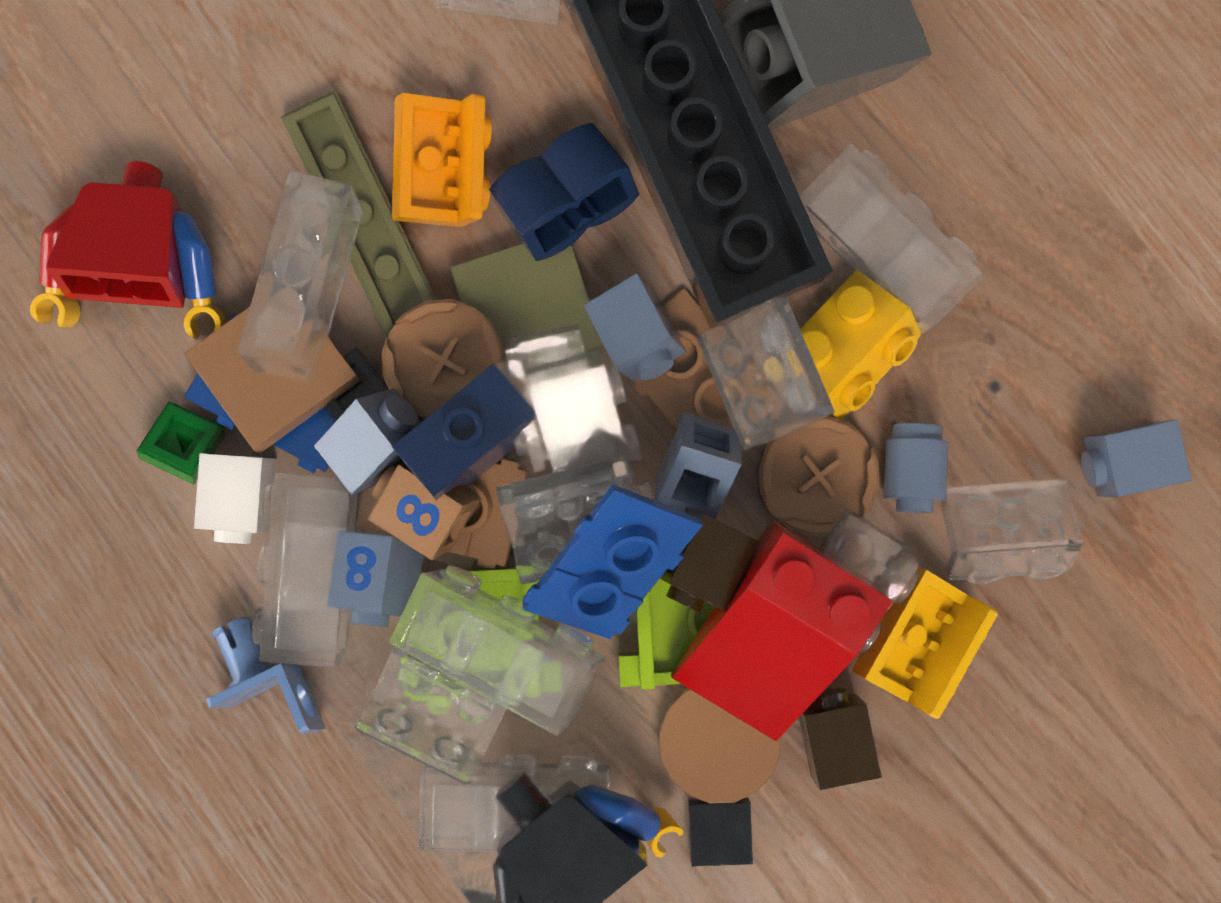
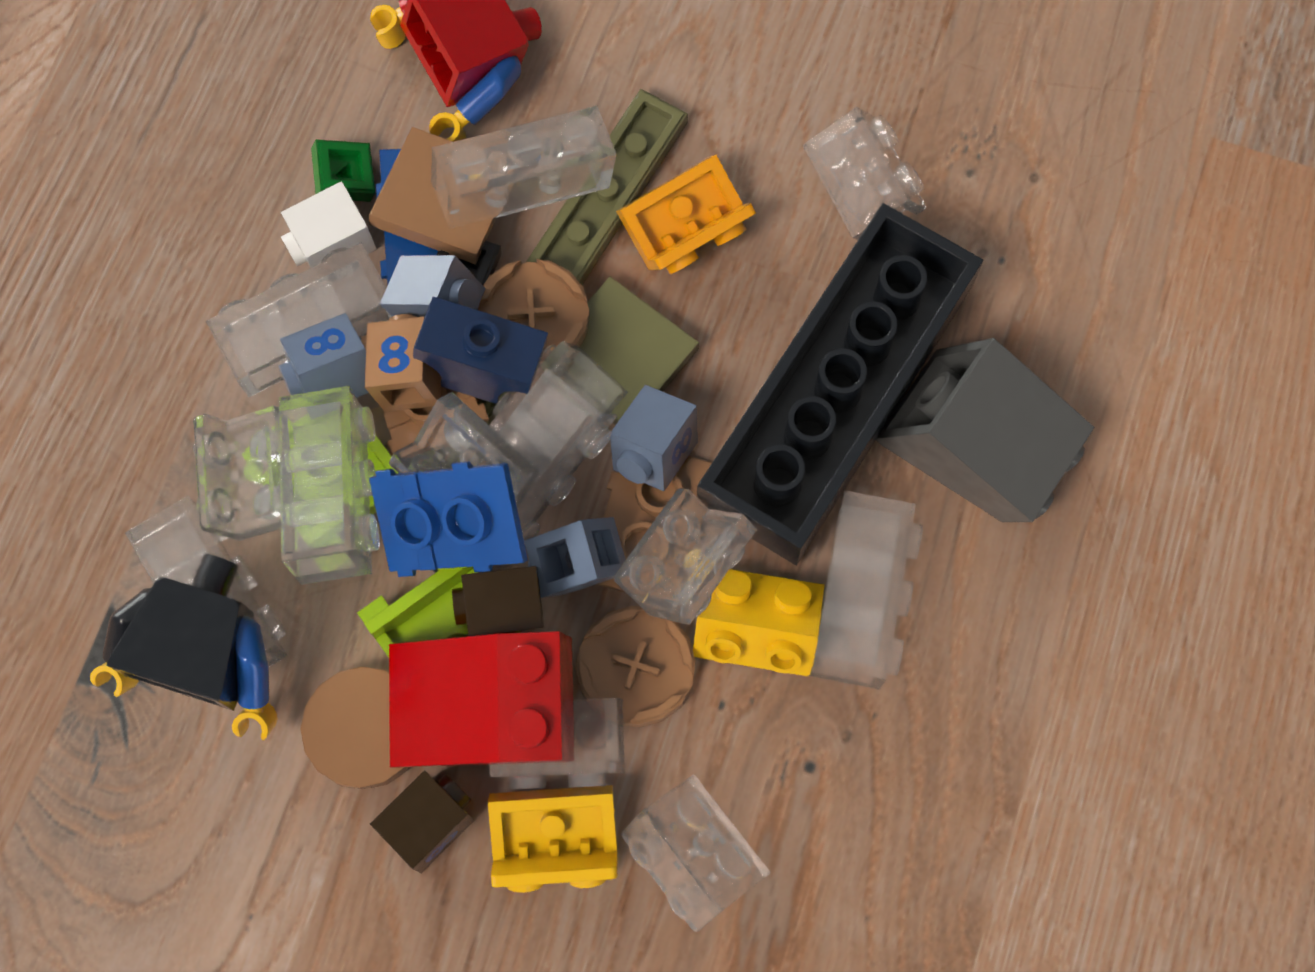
camera: 55 degrees right, 15 degrees down
(255, 677) = (192, 336): medium blue bracket -> none
(564, 191) = (724, 318): dark blue brick -> none
(720, 833) = (285, 779): black tile -> none
(916, 467) = (694, 737): sand blue brick -> none
(1135, 459) = (825, 916): sand blue brick -> none

